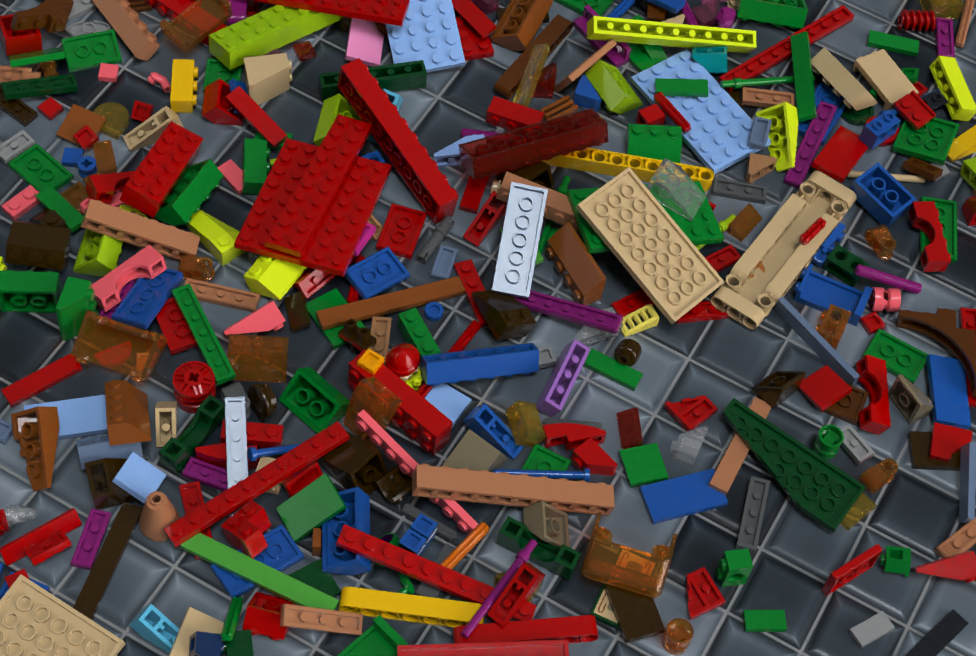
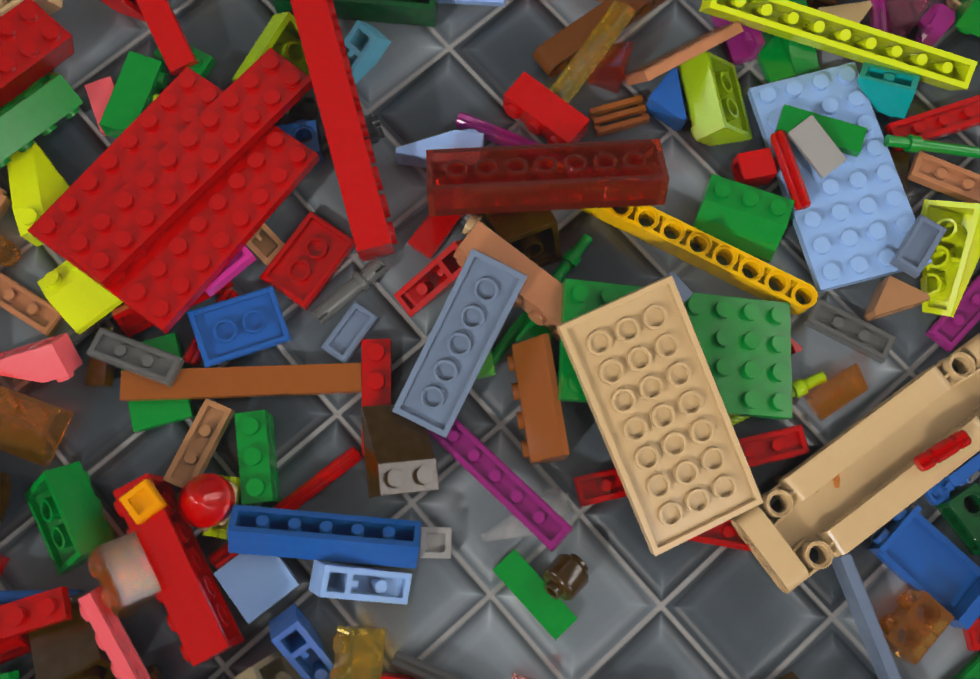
camera: 25 degrees right, 20 degrees up
(323, 301) = (135, 357): none -> dark grey tile
(357, 337) = (163, 431): dark brown hips -> none
(433, 311) = (303, 411): blue tile -> none
(503, 387) = (359, 582): none -> light blue slope
(562, 378) = (445, 597): medium lavender brick -> none
(649, 316) = (630, 520): light yellow slope -> none
(676, 190) = (741, 321): clear slope -> none
(682, 95) = (816, 146): none -> light grey tile

